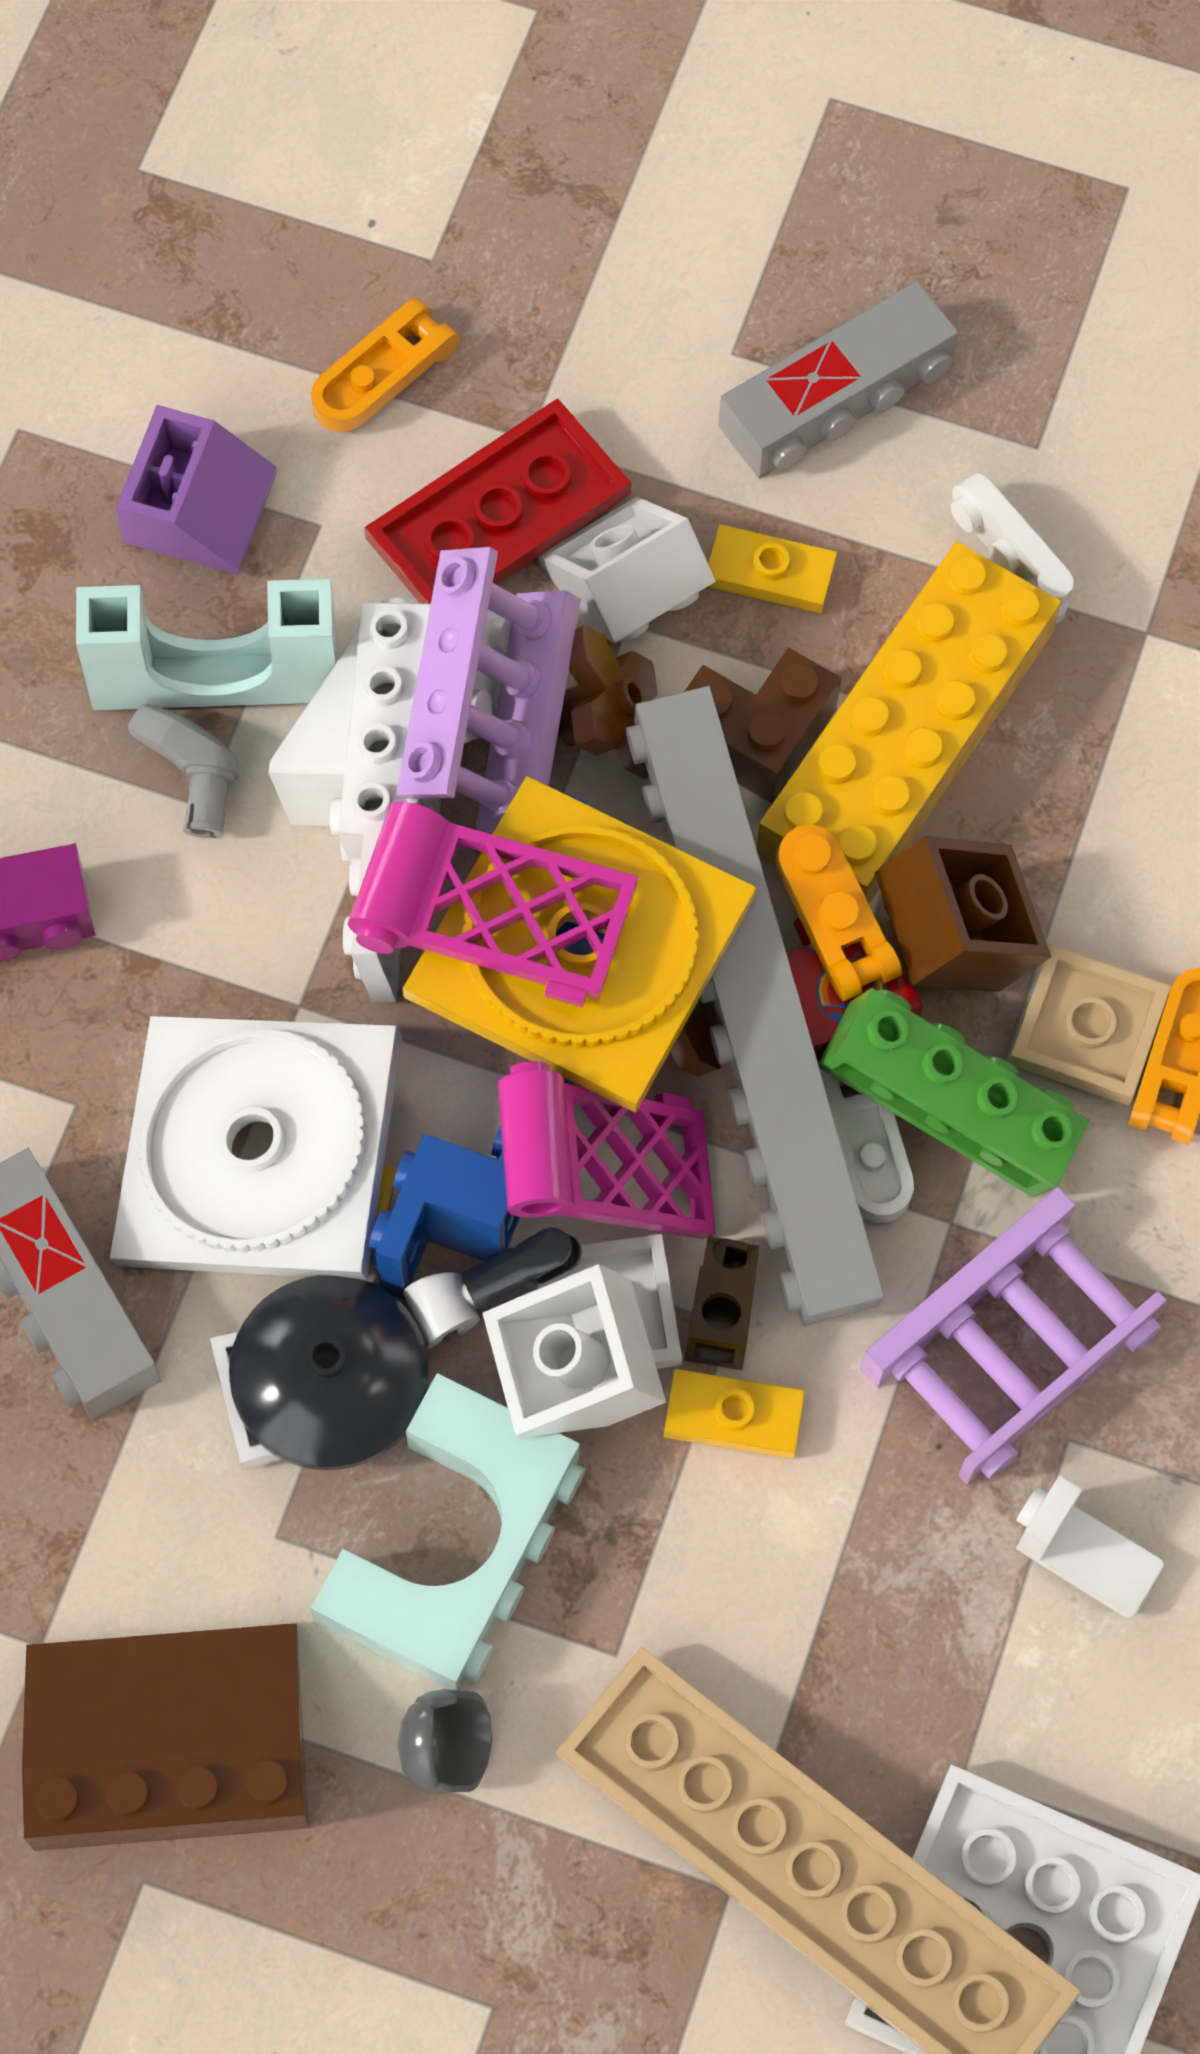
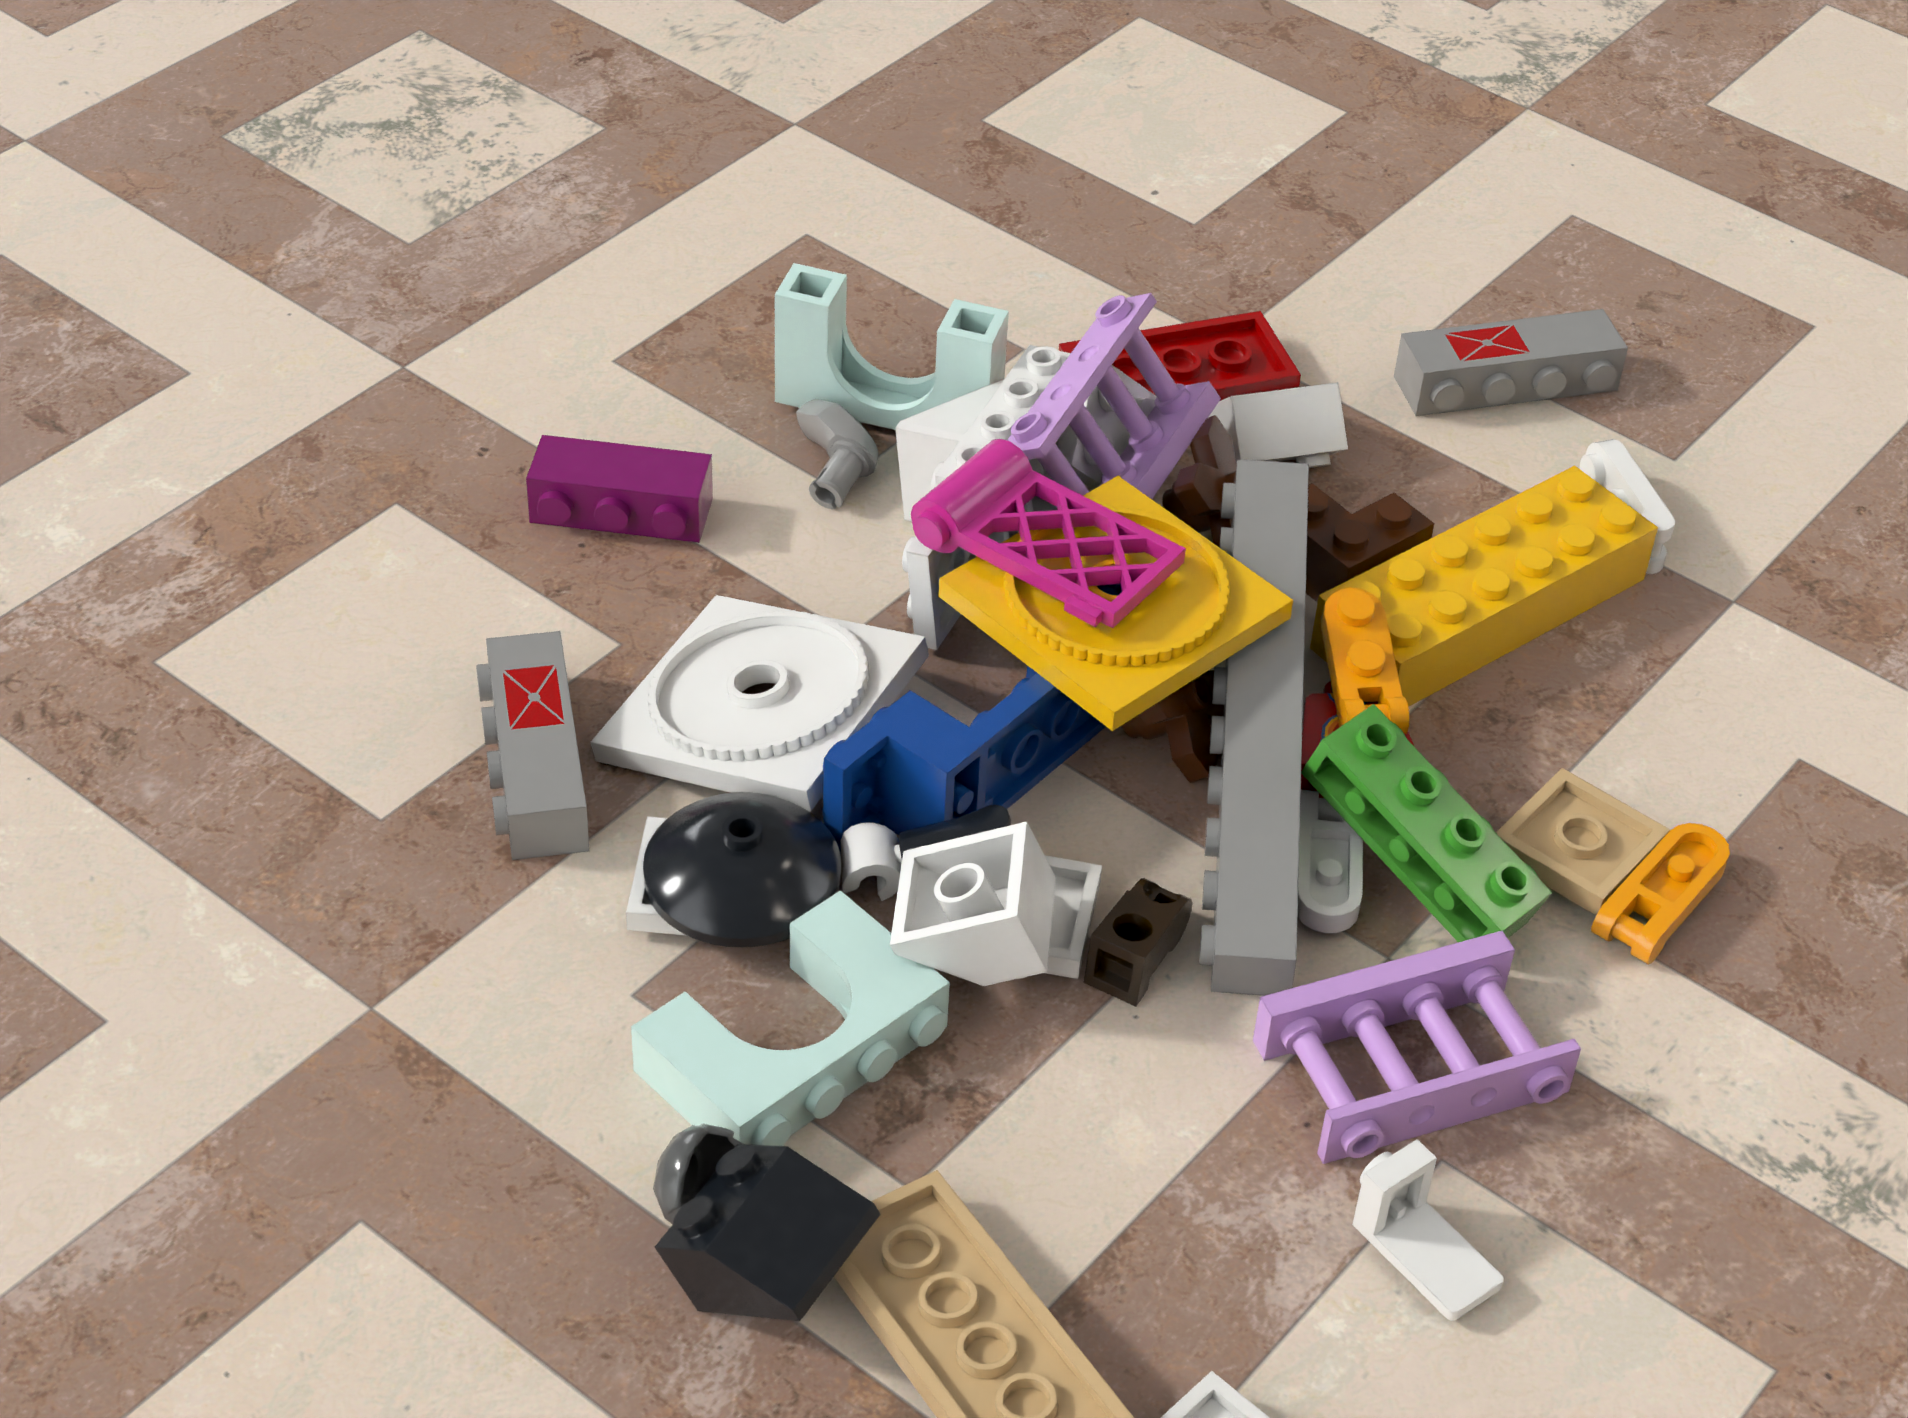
camera: 20 degrees right, 25 degrees down
(163, 1737) = (437, 1110): reddish brown slope -> none
(194, 491) = (916, 277): medium lavender slope -> none
(381, 367) = (1121, 263): light orange plate -> none
(527, 1787) = (764, 1234): none -> black slope
(548, 1150) = (1015, 728): dark pink piece -> none
(734, 1414) = (1112, 1030): yellow plate -> none
(771, 568) = (1402, 467): yellow plate -> none
(962, 914) = (1483, 710): reddish brown brick -> none

